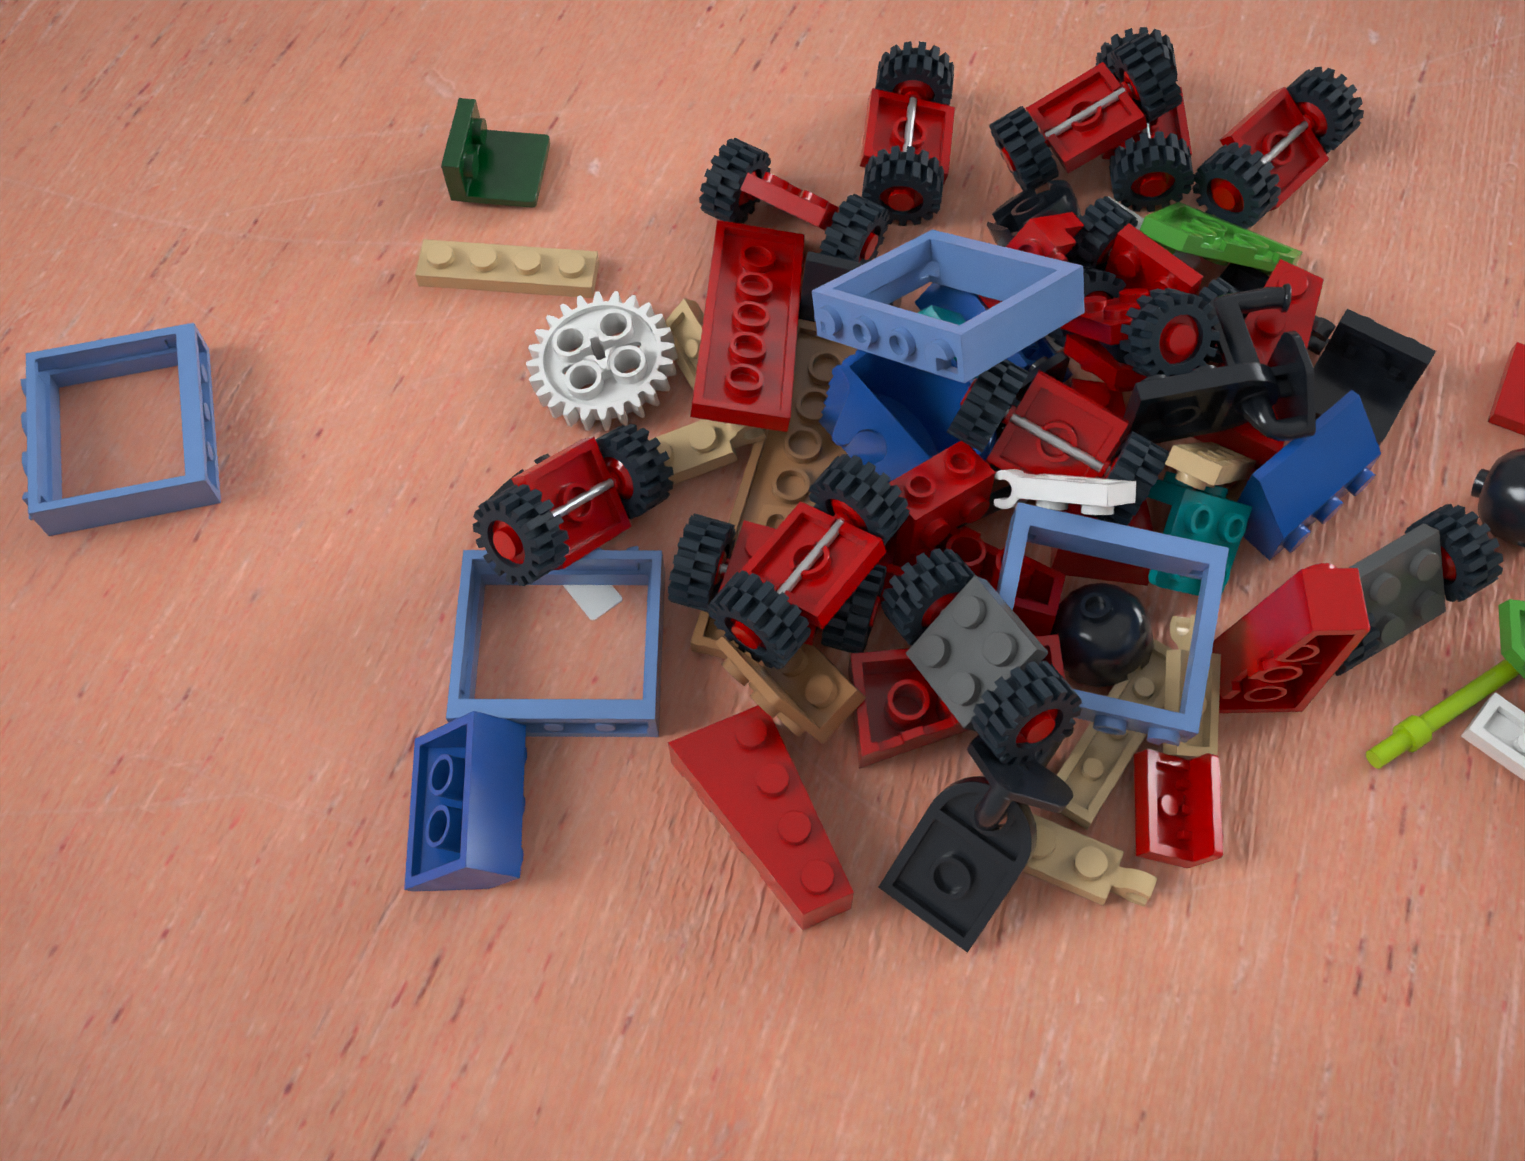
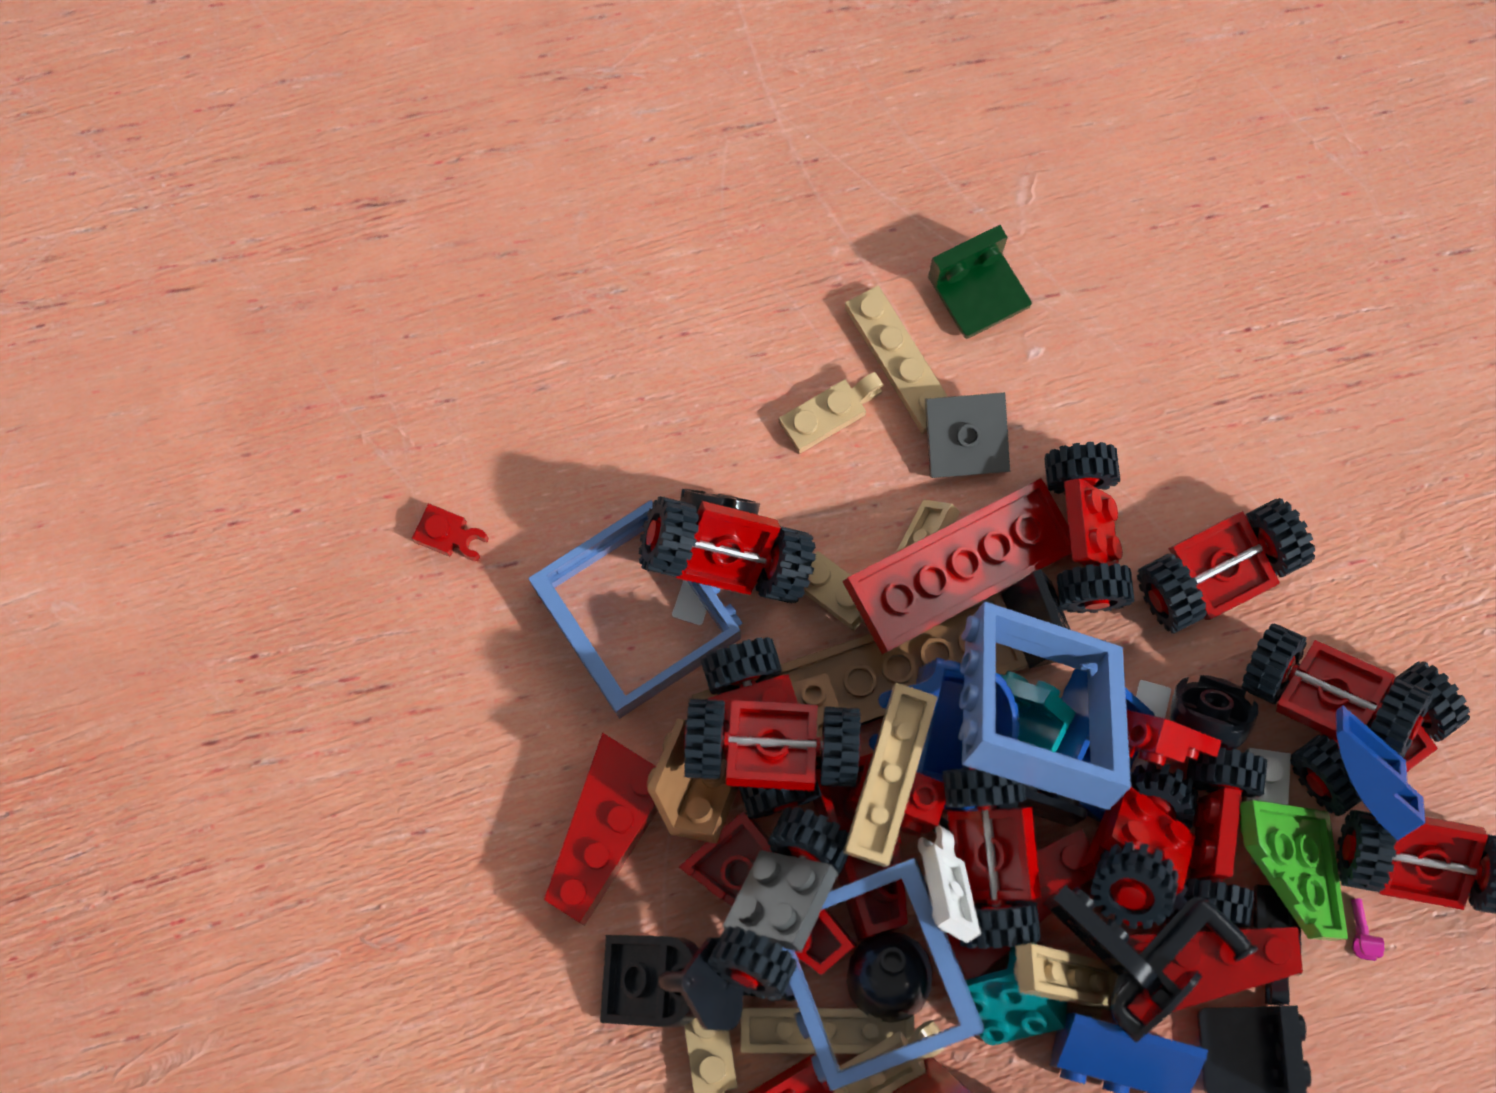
camera: 55 degrees right, 10 degrees up
(107, 359) = (636, 249): medium blue window -> none
(323, 786) = (445, 531): none -> red plate
(467, 805) = (486, 633): blue slope -> none
(505, 354) = (829, 412): none -> tan plate
(602, 360) = (845, 506): white gear -> none
(626, 252) = (967, 435): none -> dark grey plate
(923, 469) = (890, 775): none -> tan plate
(1188, 114) = (1378, 776): none -> blue slope
(1314, 247) = (1365, 945): none -> dark pink hand

